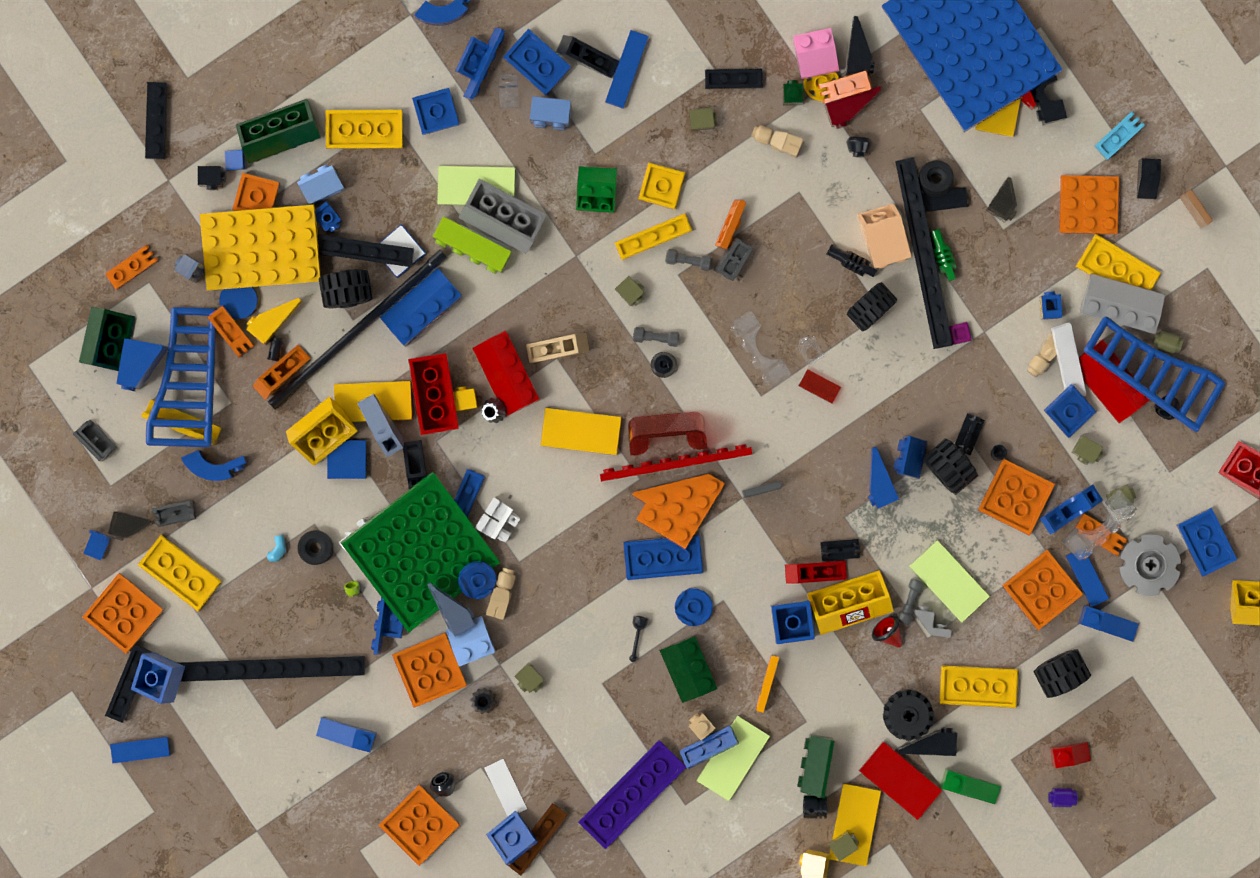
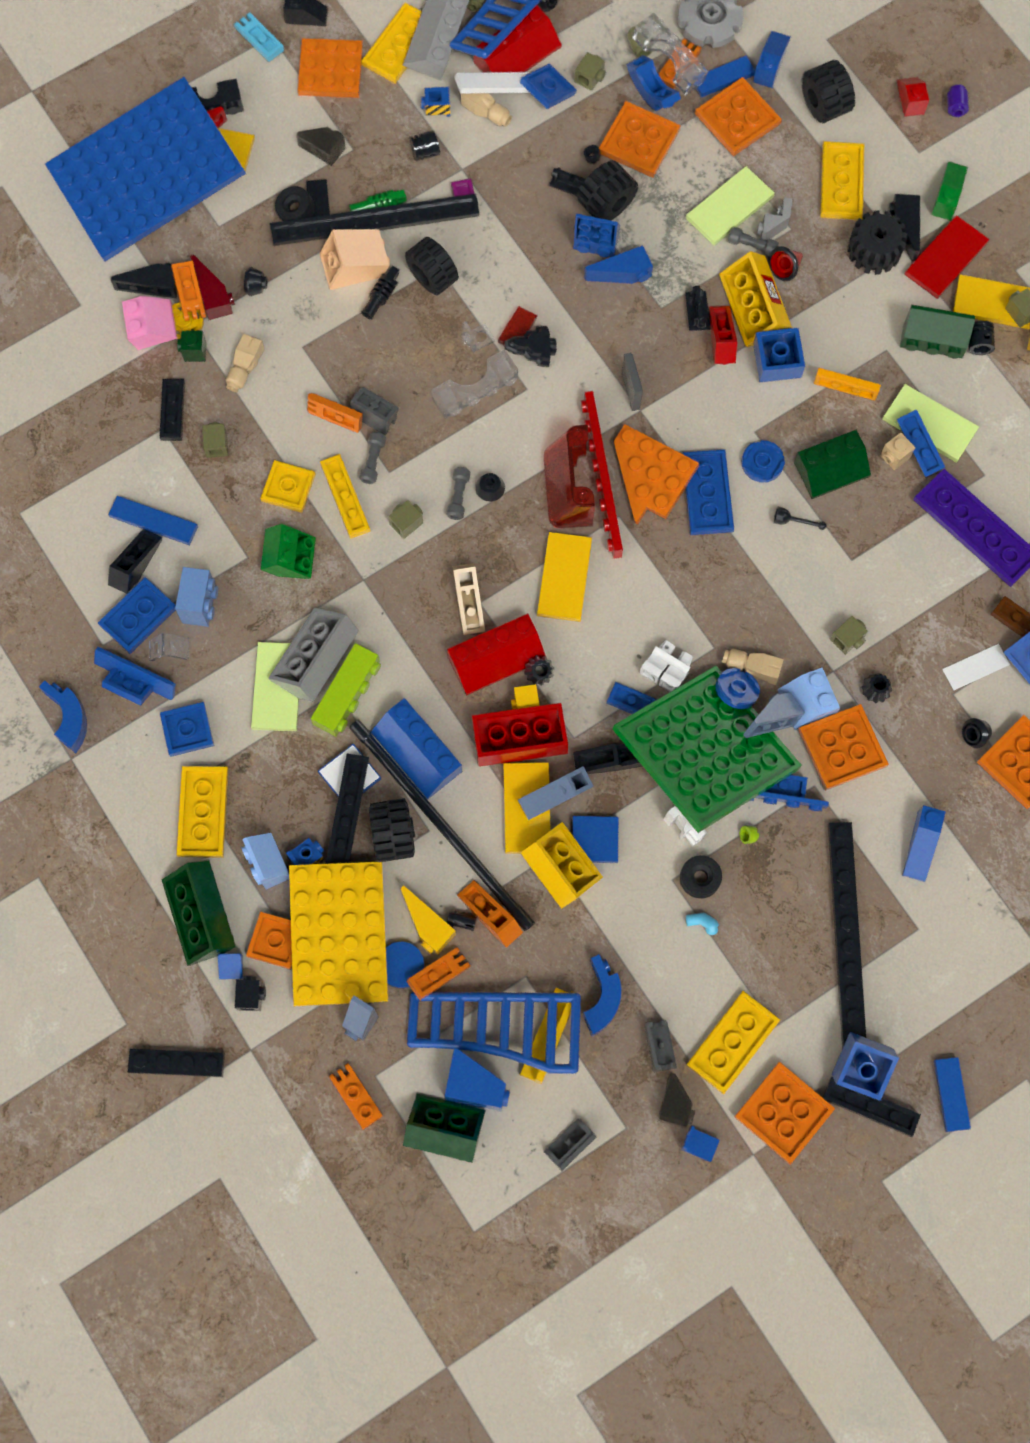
camera: 95 degrees left, 15 degrees down
(798, 401) = (534, 345): none -> black rock
(1003, 296) = (424, 145): none -> black piece

